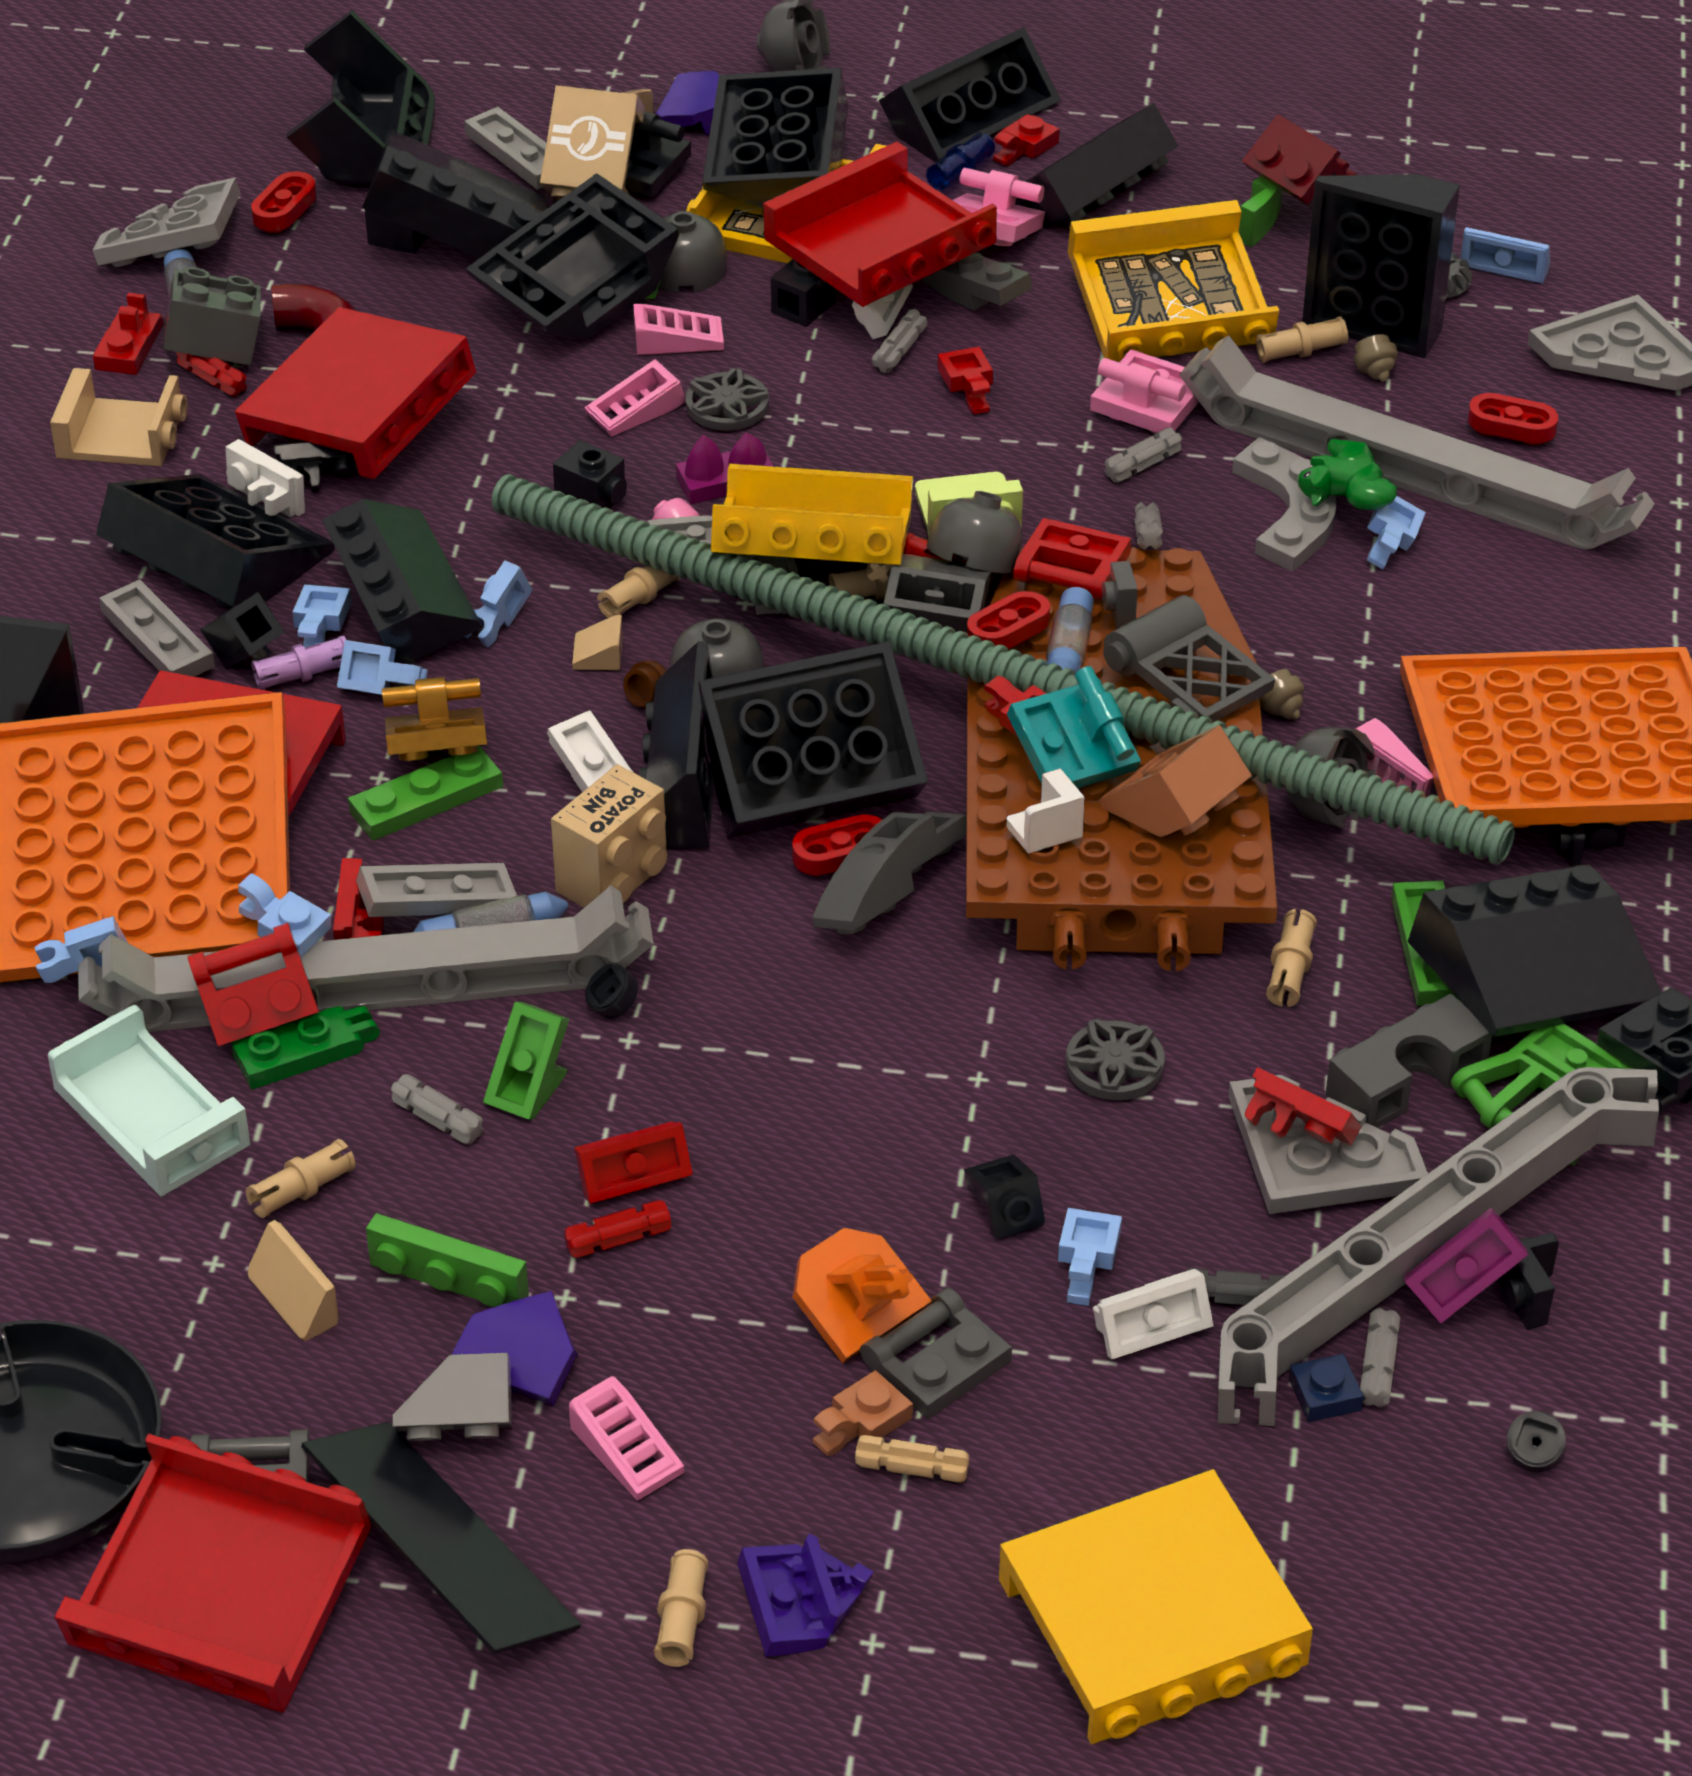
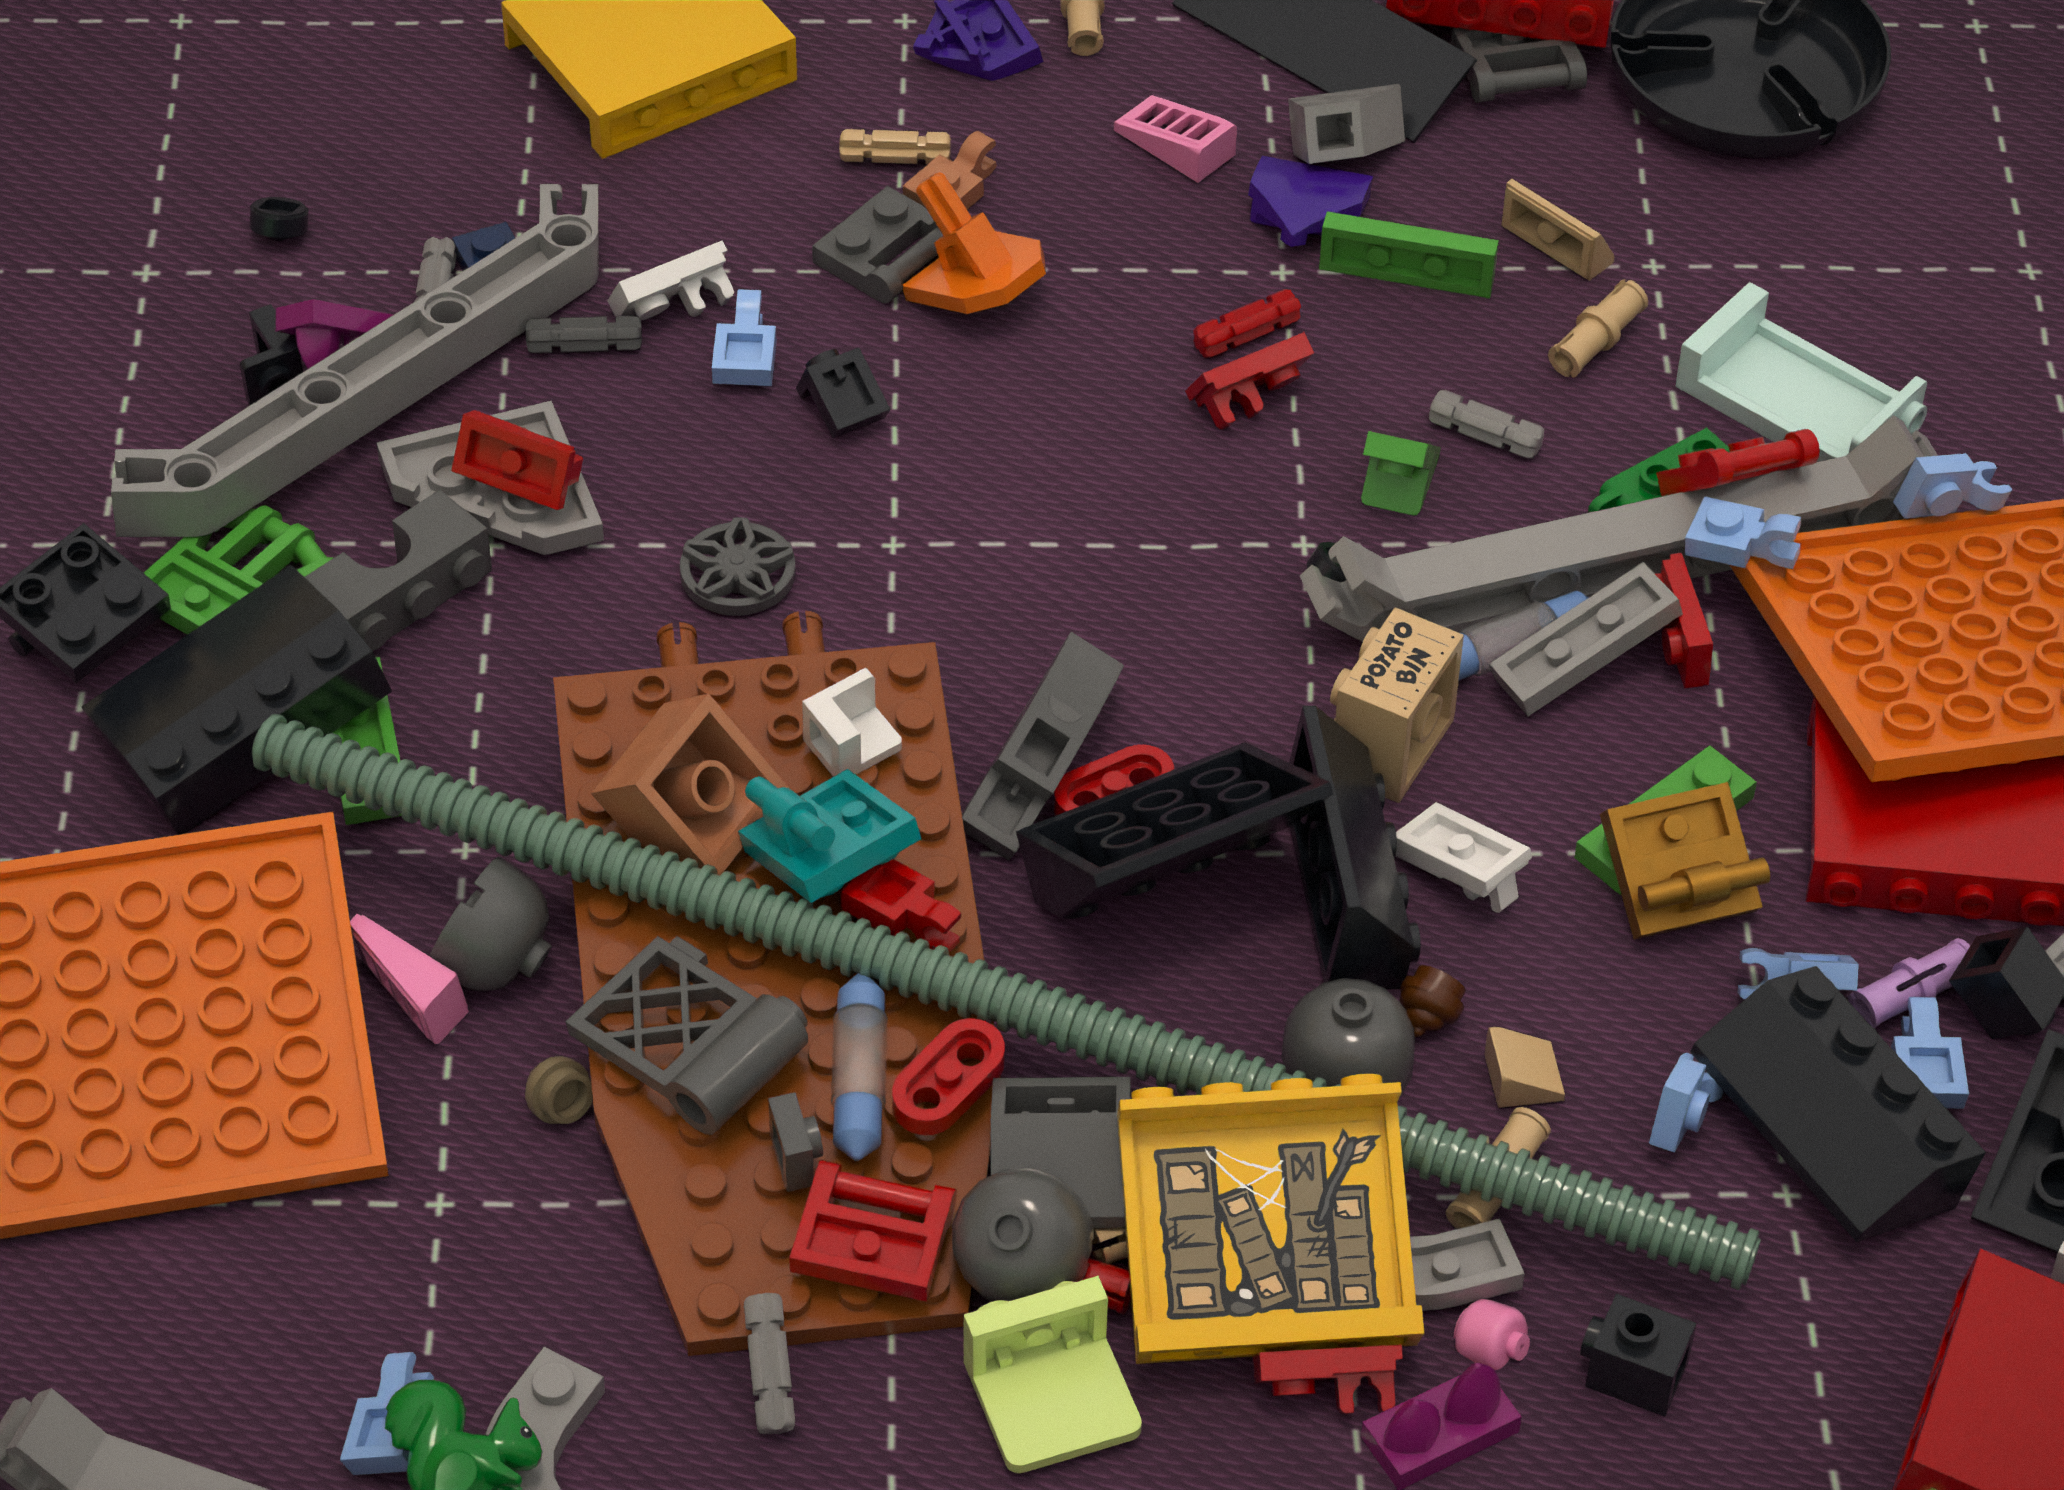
camera: 170 degrees right, 5 degrees up
(1291, 958) = (533, 702): tan pin -> none

